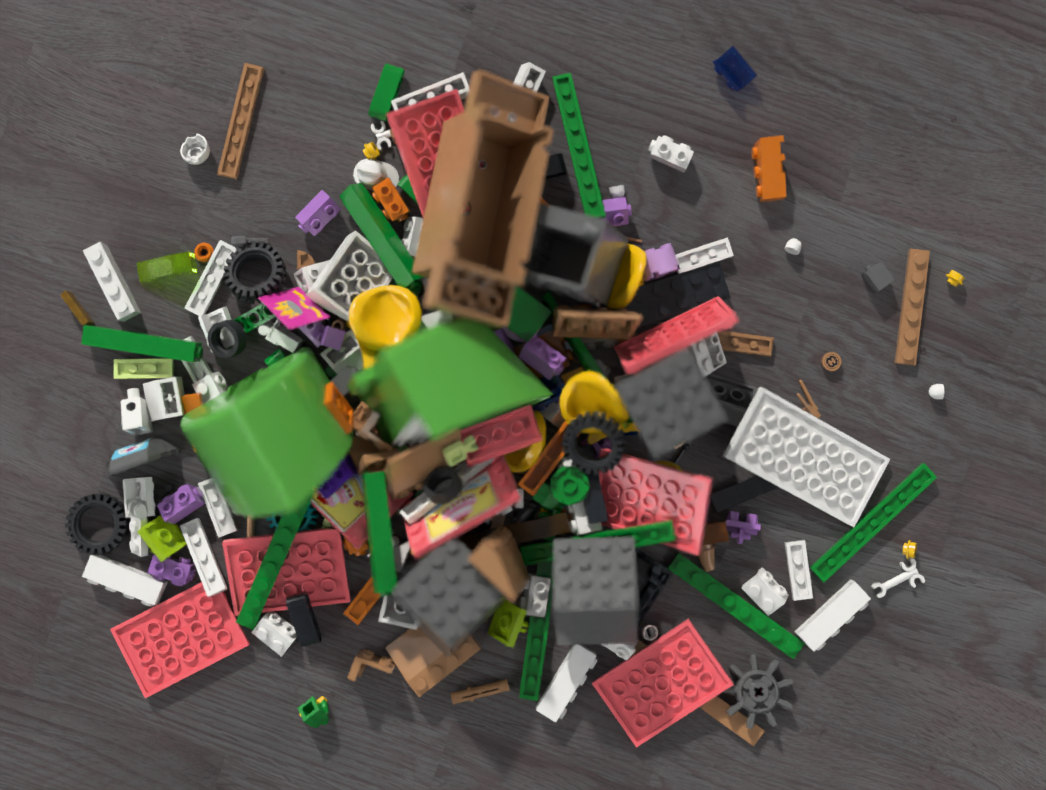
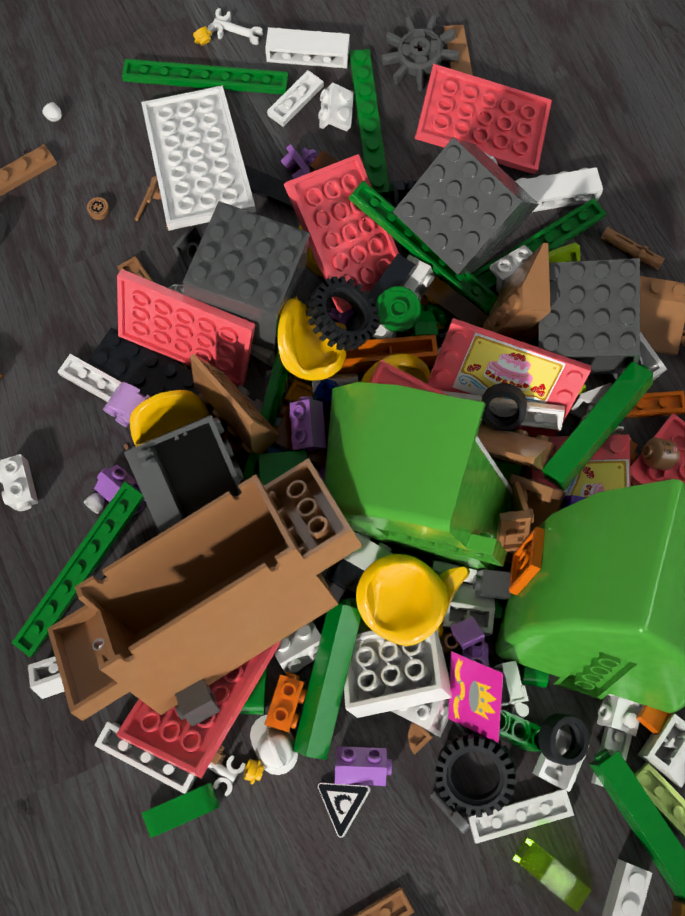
camera: 130 degrees left, 15 degrees down
(198, 252) = (509, 853): orange plate -> none
(307, 185) = (343, 803): none -> black piece
(330, 559) = (660, 454): none -> medium nougat head
(430, 146) = (196, 703): none -> dark grey brick
(793, 246) = (20, 314): white hinge -> none

